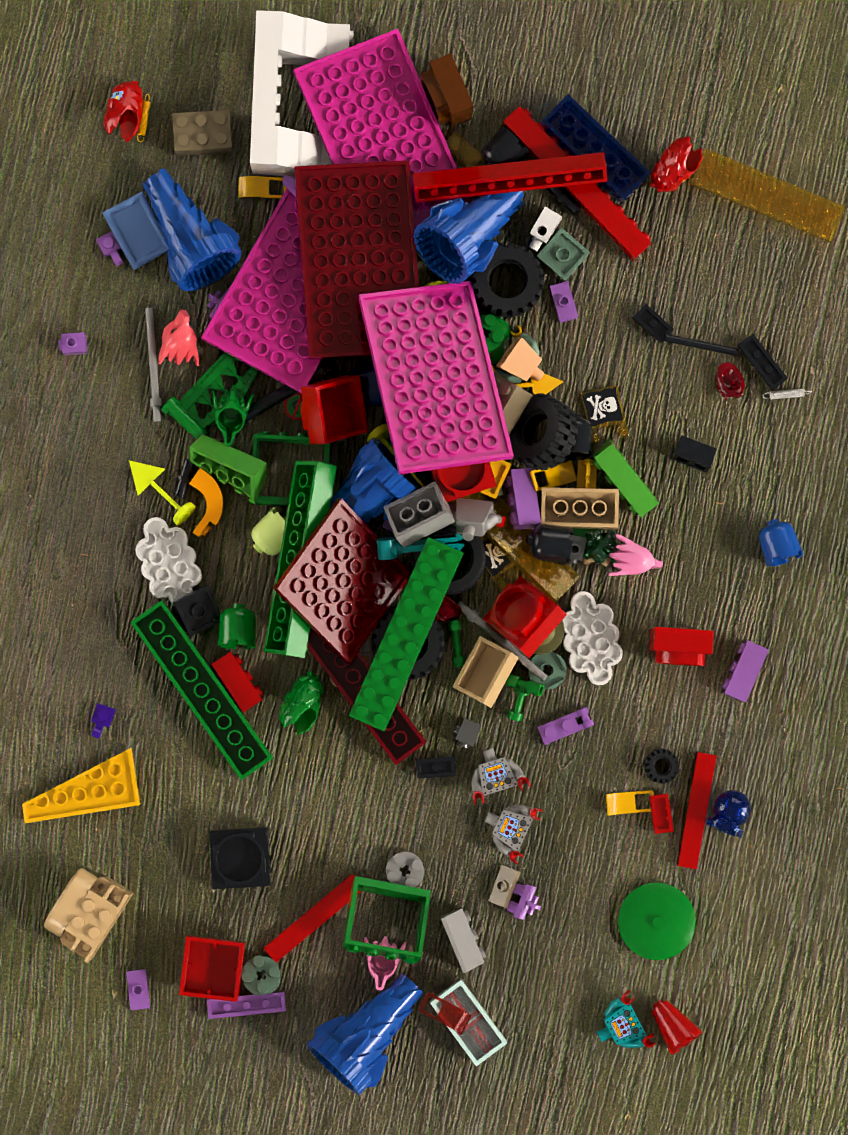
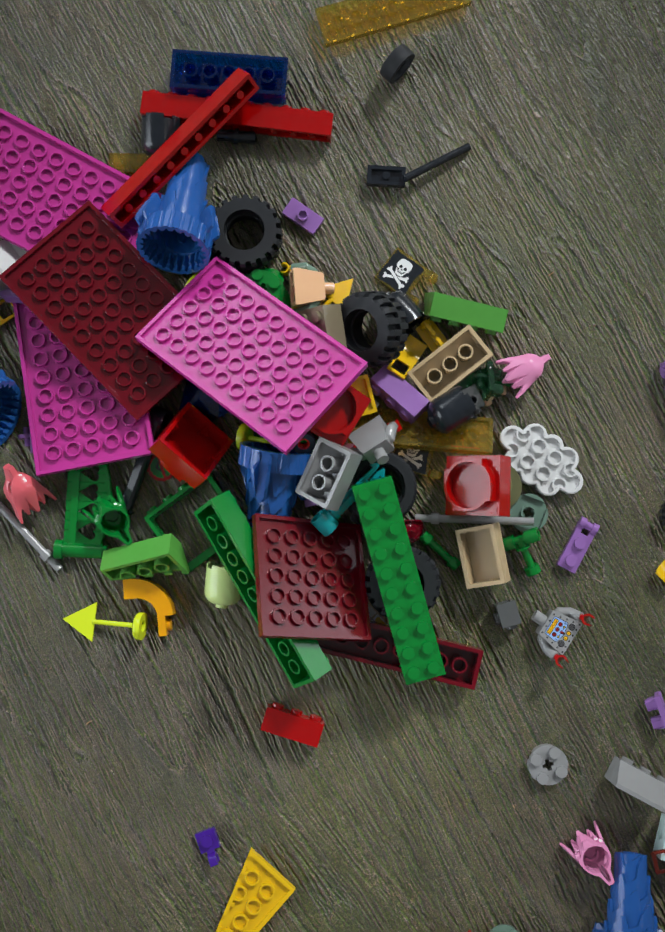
camera: 30 degrees left, 0 degrees up
(167, 560) = (160, 674): white plate -> none
(184, 479) = (118, 598): black pin -> none
(197, 610) = (214, 694): black hinge -> none
(202, 690) = (269, 756): green brick -> none
(237, 628) = (257, 683): green cylinder -> none
(240, 858) = (410, 865): black container -> none
(302, 703) = (358, 700): green head -> none
(310, 920) = (507, 862): red tile -> none
(390, 890) = (603, 805): green window -> none
(420, 482) = (307, 447): none -> black wheel
(435, 767) = (504, 662): black plate -> none
(447, 92) = (75, 121): reddish brown container -> none
(504, 886) = (636, 712): dark tan plate -> none
(511, 828) = (605, 662): torso -> none
(550, 221) = (238, 163): white torso -> none
(563, 254) = (272, 179): sand green plate -> none
(675, 165) = (302, 38): red head -> none
(680, 645) = (620, 407): red container -> none
(694, 454) = (501, 250): black hinge -> none
(729, 381) = (482, 172): dark red hat -> none
(732, 244) = (397, 63): none -> black tyre
(762, 362) = (495, 137): black plate -> none
(779, 543) = (625, 264): blue cylinder -> none
(793, 393) = (533, 147): white piece -> none

